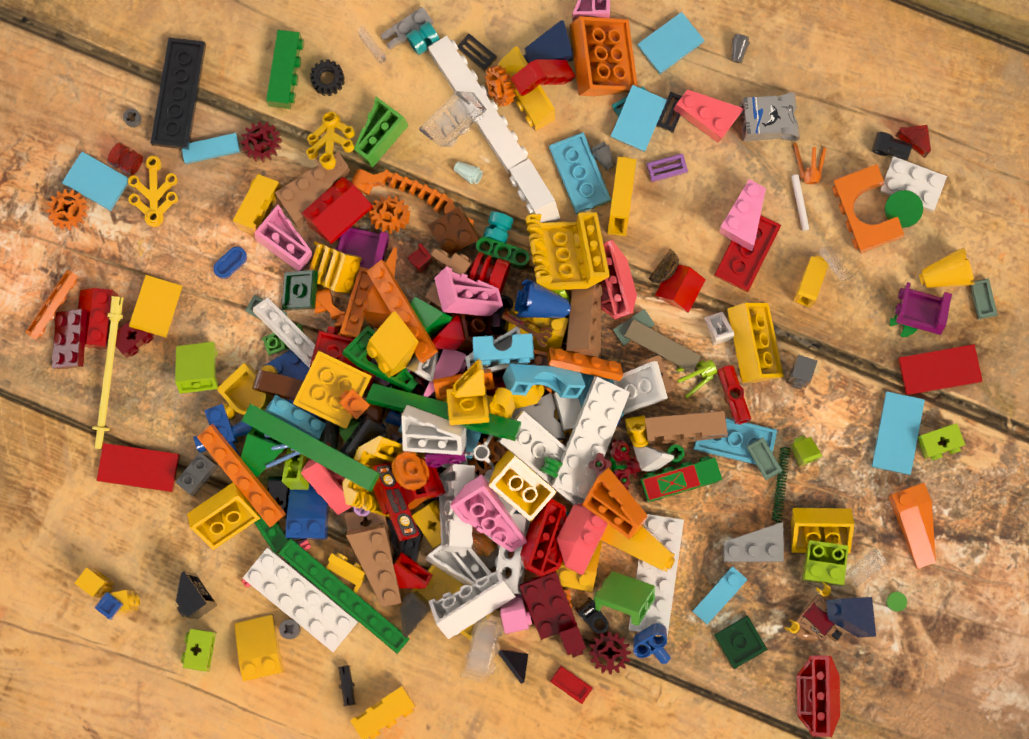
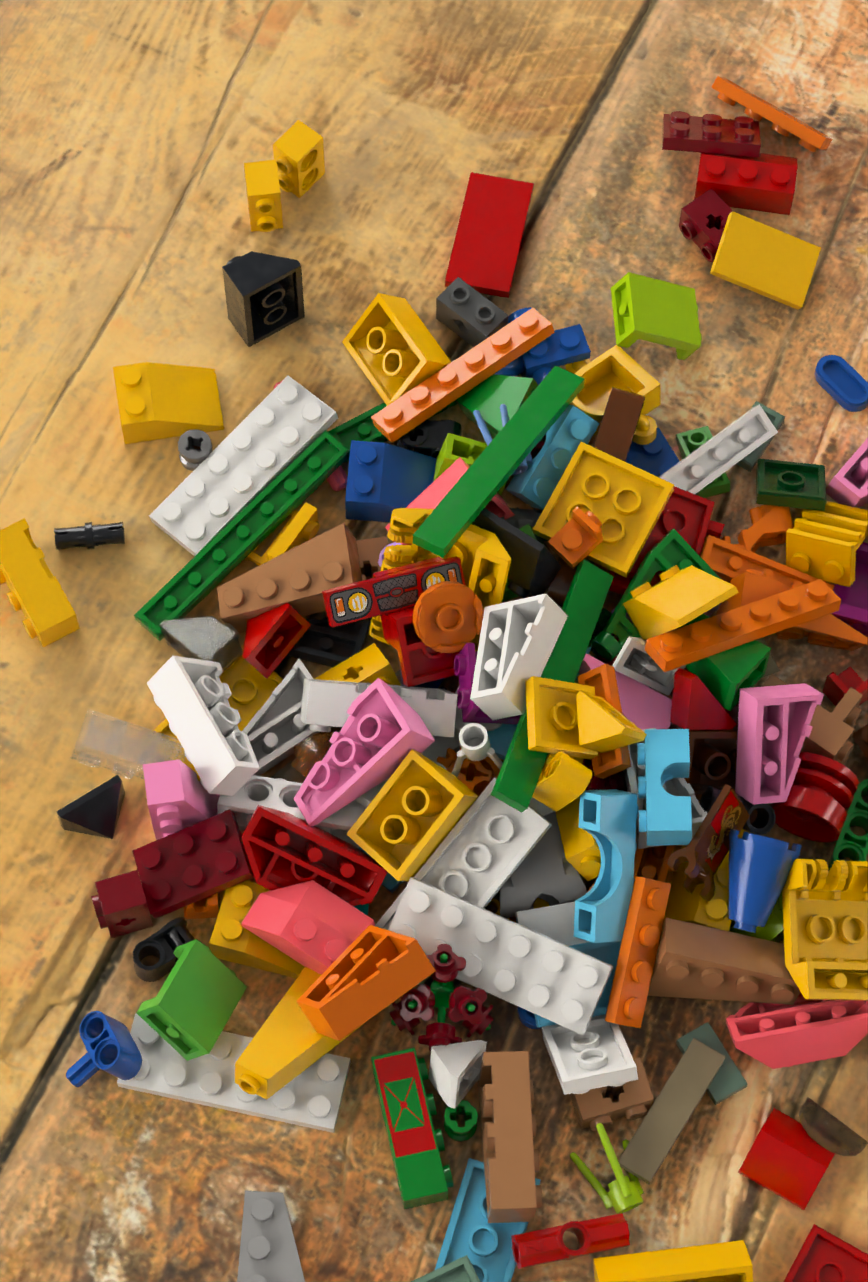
camera: 85 degrees right, 15 degrees down
(108, 605) = (255, 165): blue tile -> none
(114, 316) = (745, 193): light yellow bar -> none
(202, 660) = (174, 312): lime brick -> none
(550, 467) = (443, 872): green wheel -> none
(571, 684) = (47, 907): red tile -> none
(610, 662) = (82, 972): dark red gear -> none
(637, 431) = (509, 1040): yellow piece -> none
(719, 328) = (704, 1222): white slope -> none
(719, 595) = (186, 1187): medium azure slope -> none
(740, 642) = (91, 1221): dark green tile -> none

